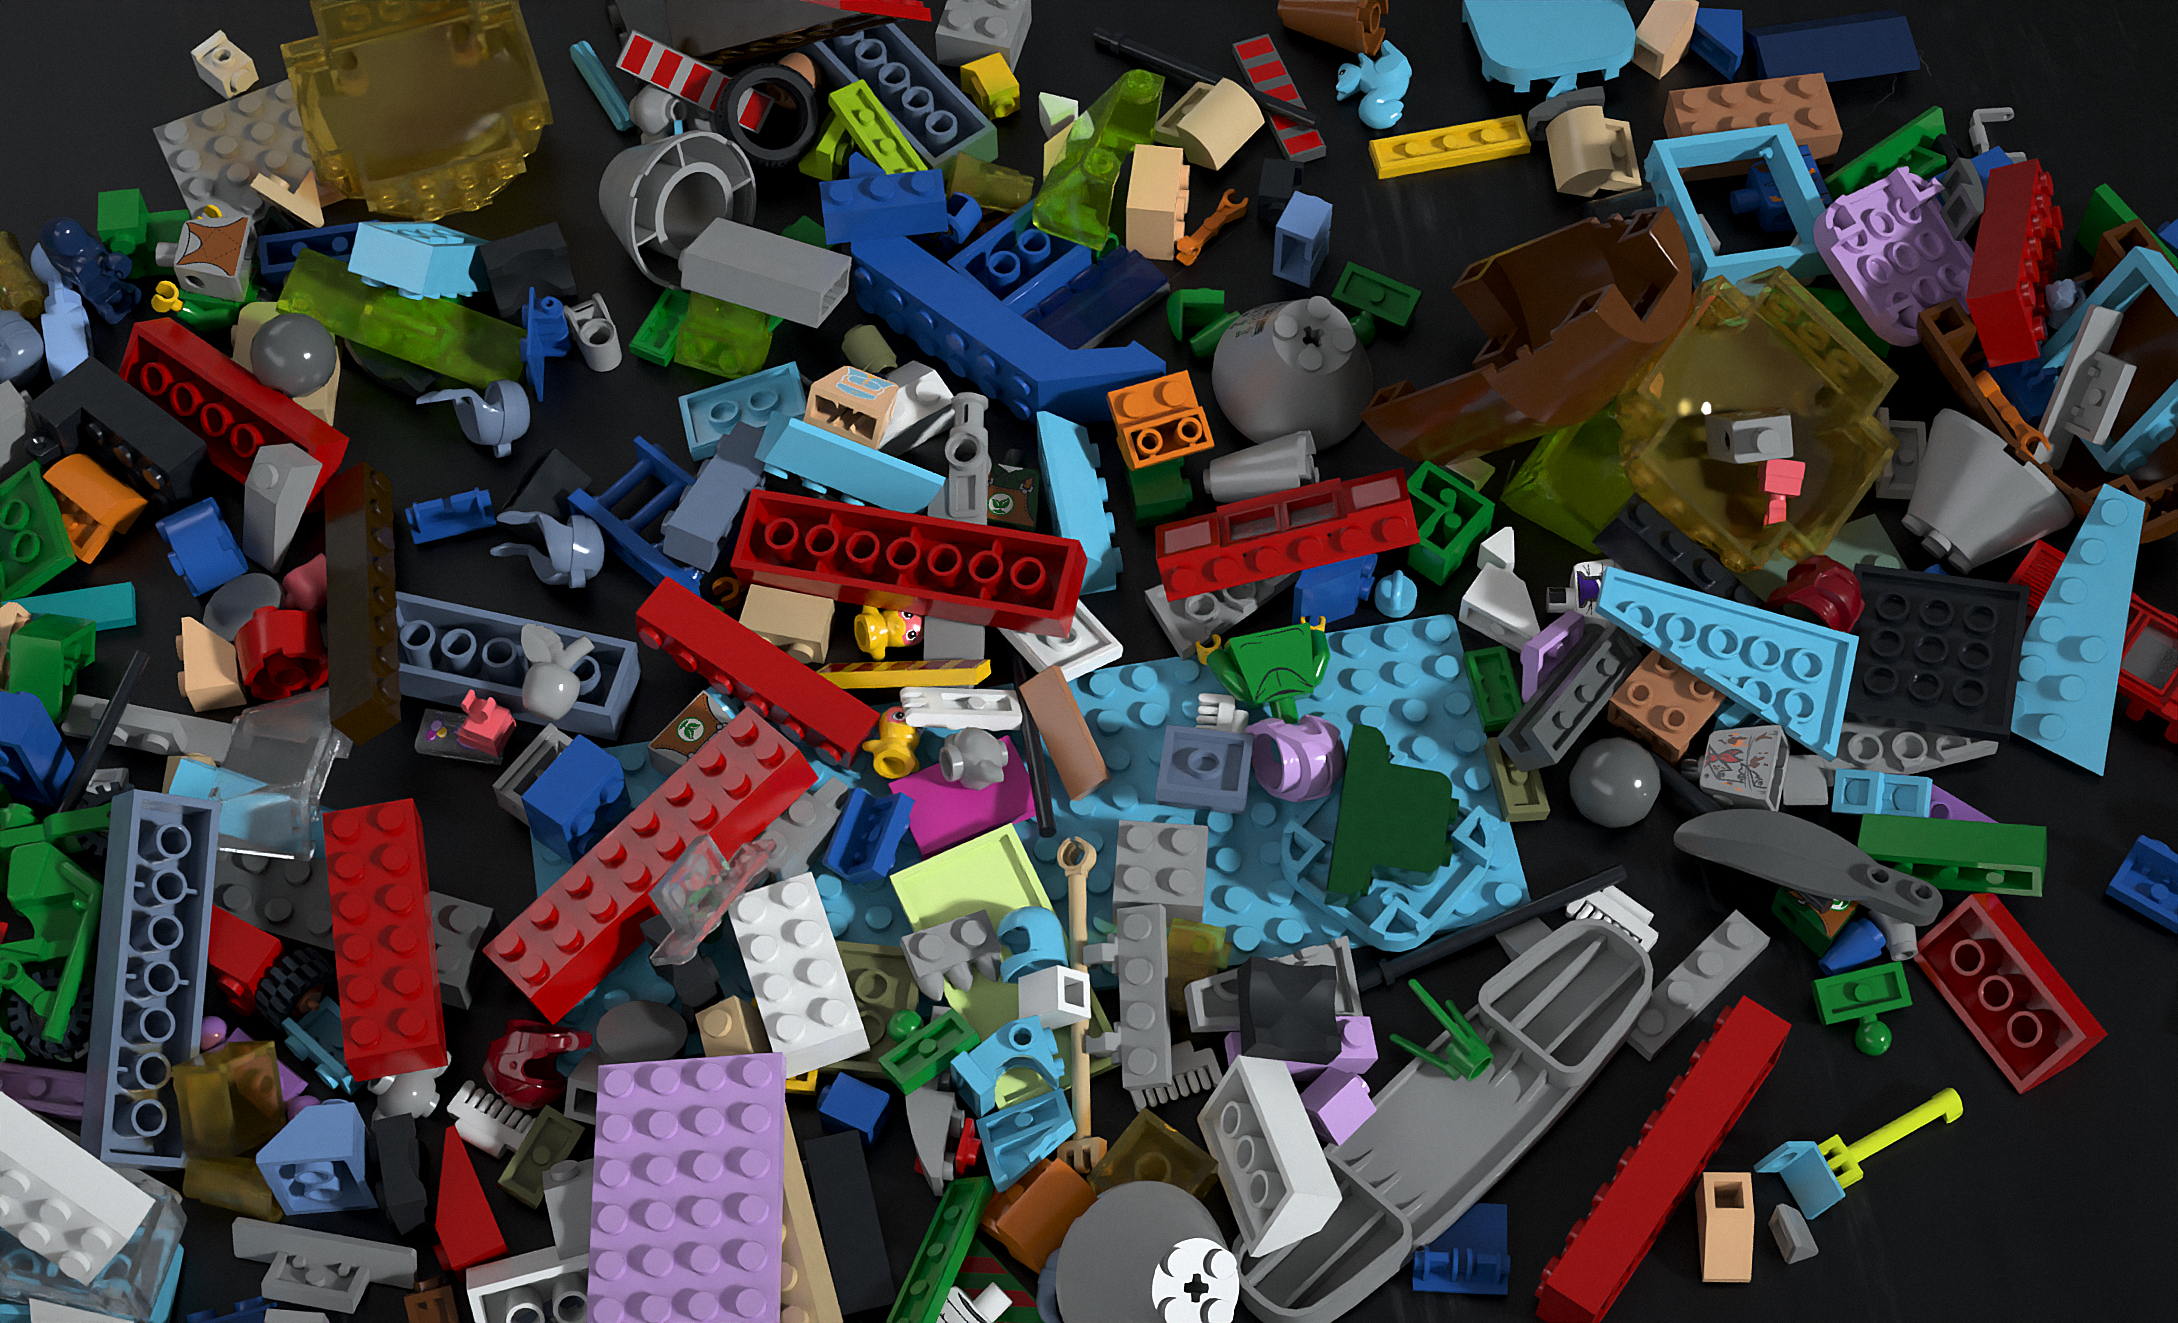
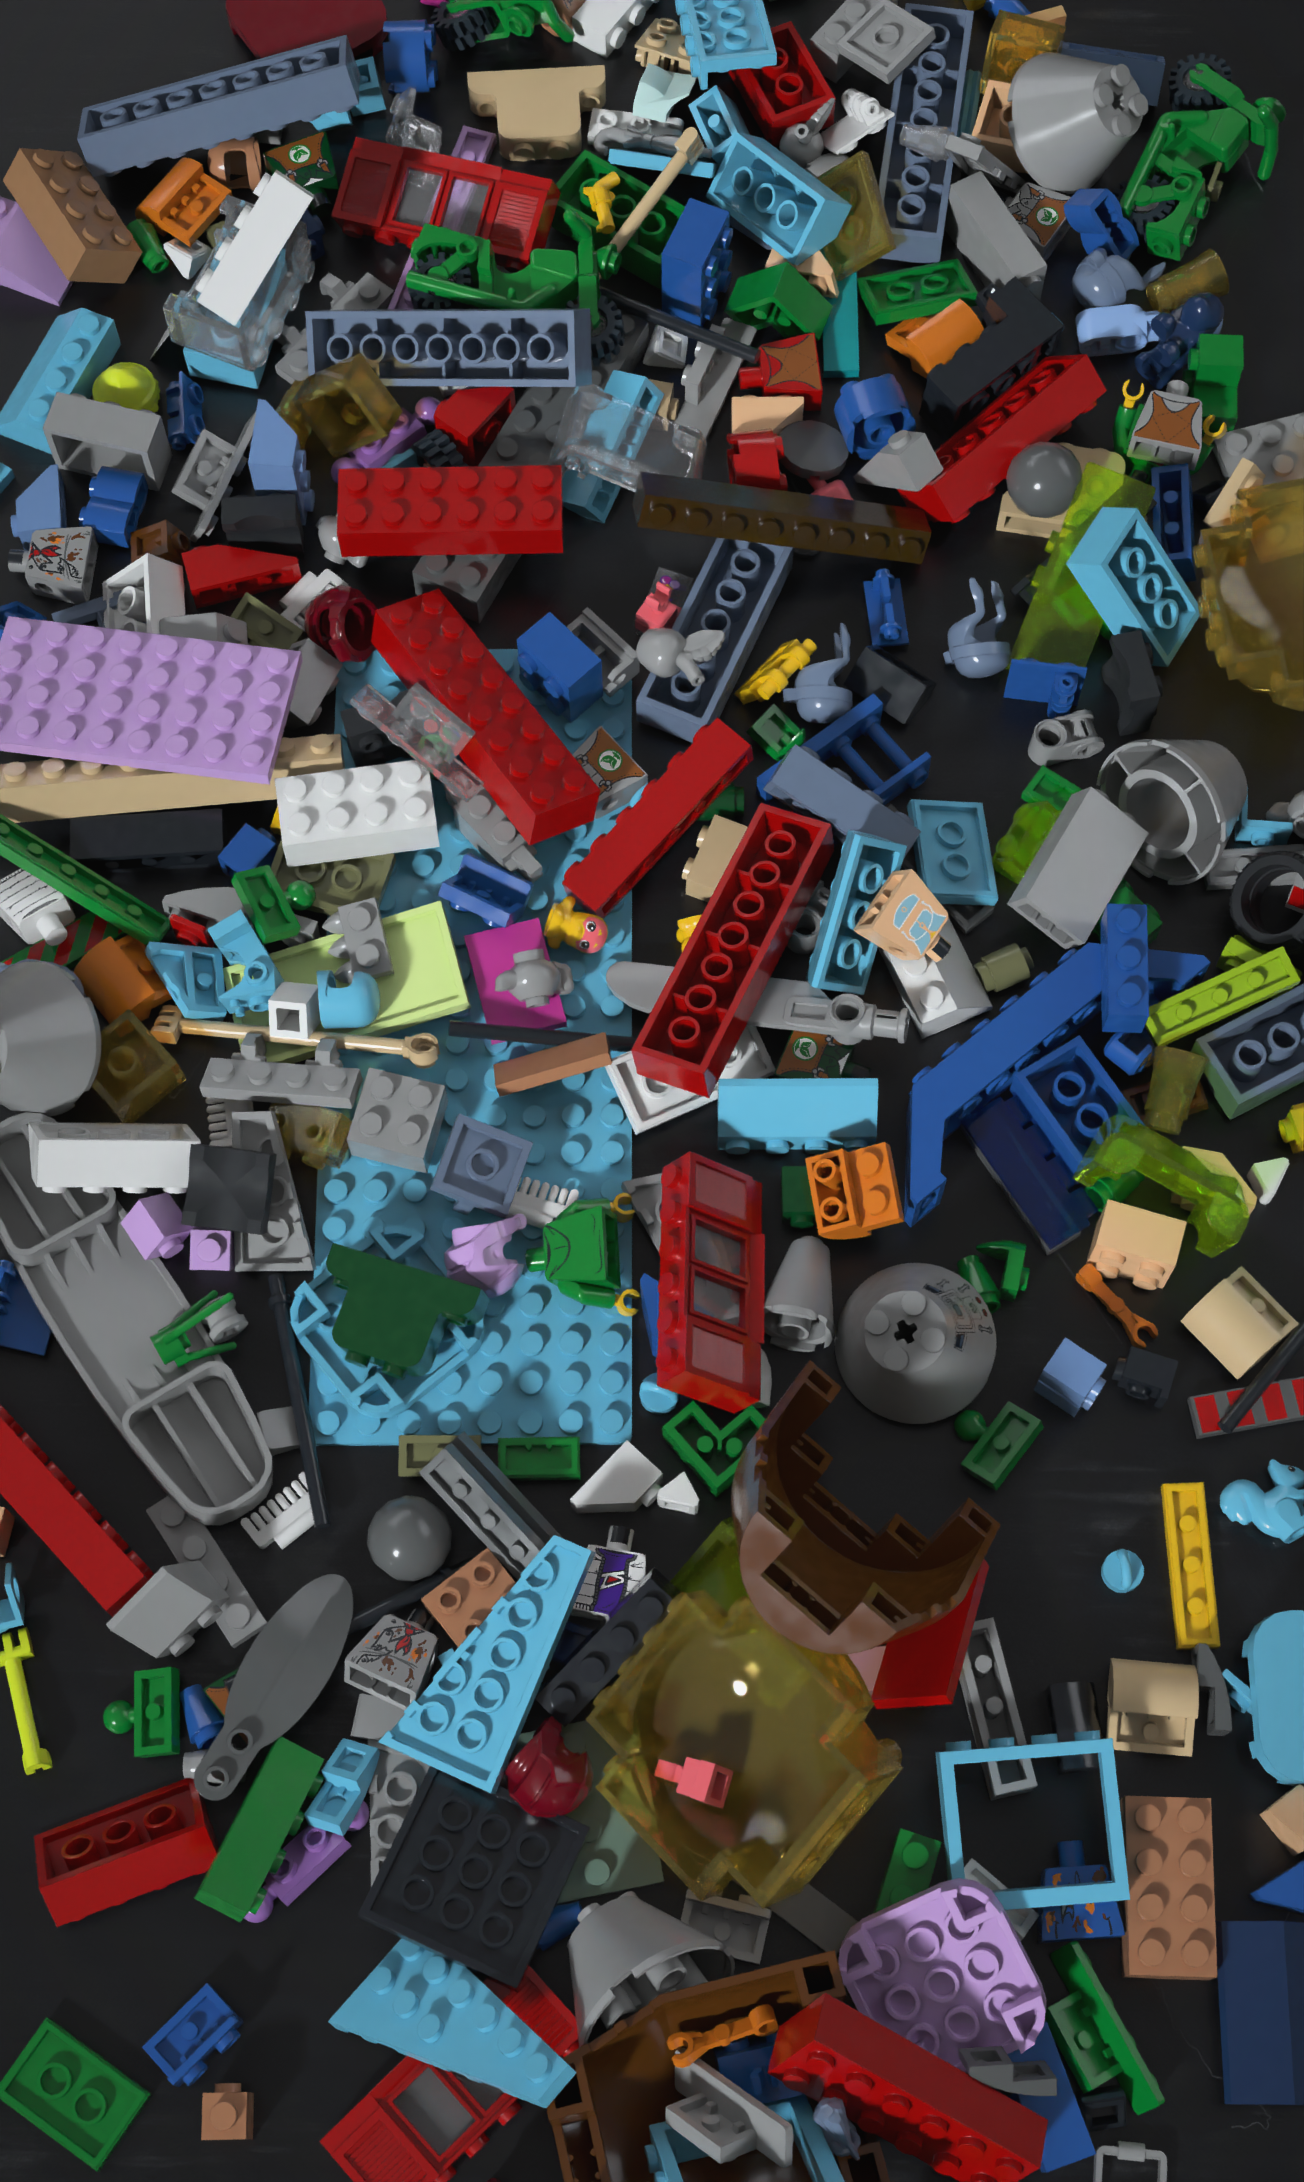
camera: 100 degrees right, 10 degrees up
(144, 629) = (787, 369): none -> torso
(530, 600) = (775, 671): none -> yellow plate
(621, 592) = (776, 733): none -> green plate
(641, 1033) = (330, 693): dark grey tile -> none
(907, 673) = (640, 941): yellow tile -> none
(961, 708) = (594, 982): white hinge -> none
(1418, 1022) = (224, 1322): none -> light grey wheel
(1470, 195) = (1122, 1571): none -> medium azure tile
(1547, 650) = (550, 1500): lavender wing -> none
(1747, 969) = (170, 1609): none -> light grey slope
(1752, 435) = (741, 1757): light grey torso -> none

